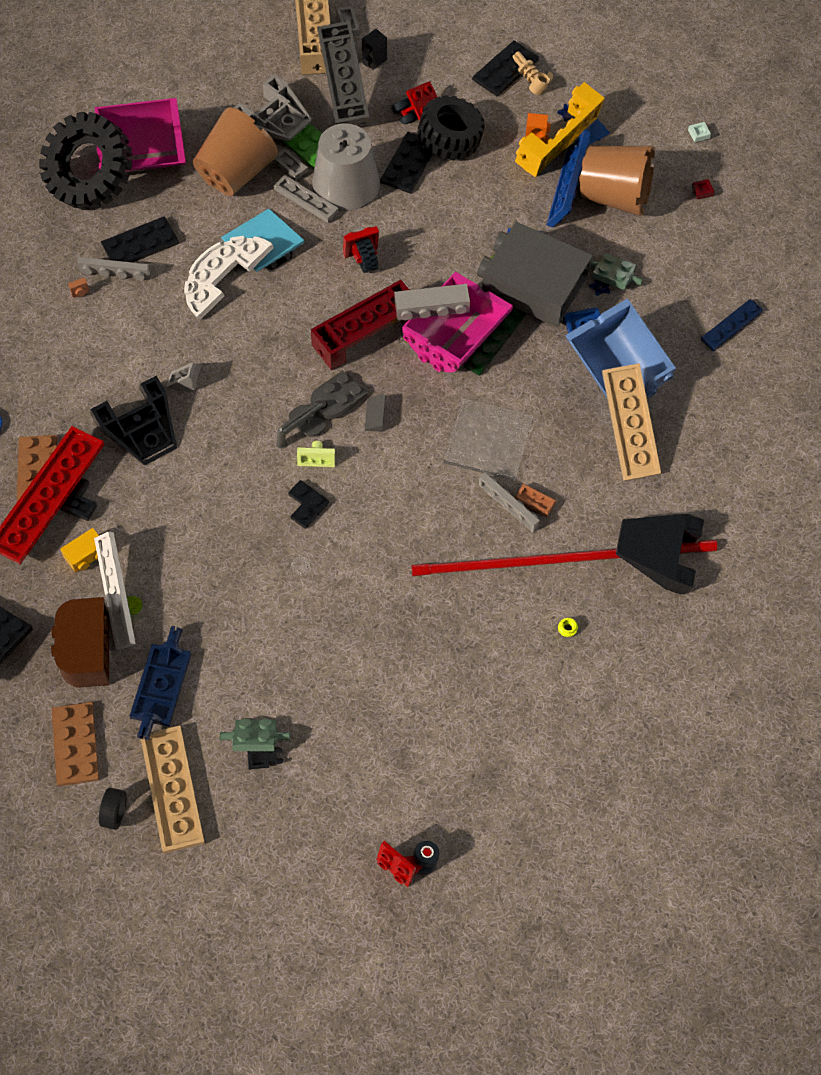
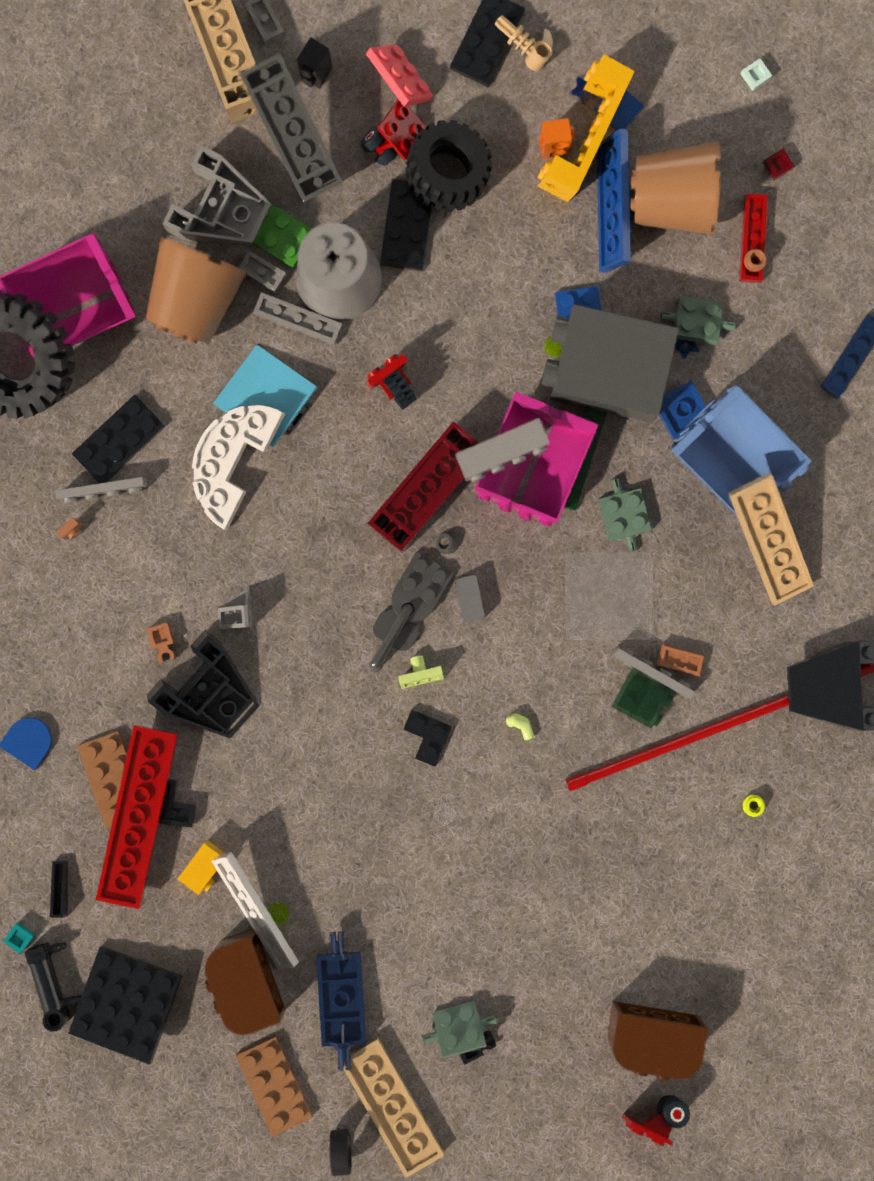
camera: 15 degrees left, 25 degrees up
(117, 380) = (161, 637): none -> nougat plate
(372, 375) = (453, 543): none -> dark grey piece
(384, 509) = (522, 723): none -> yellowish green arm
(426, 787) = (656, 1040): none -> reddish brown brick
(433, 70) = (399, 75): none -> coral plate
(495, 521) = (642, 699): none -> clear green plate
(518, 386) = (624, 514): none -> sand green plate
(668, 239) = (759, 255): none -> nougat plate
(671, 230) = (753, 233): none -> red plate

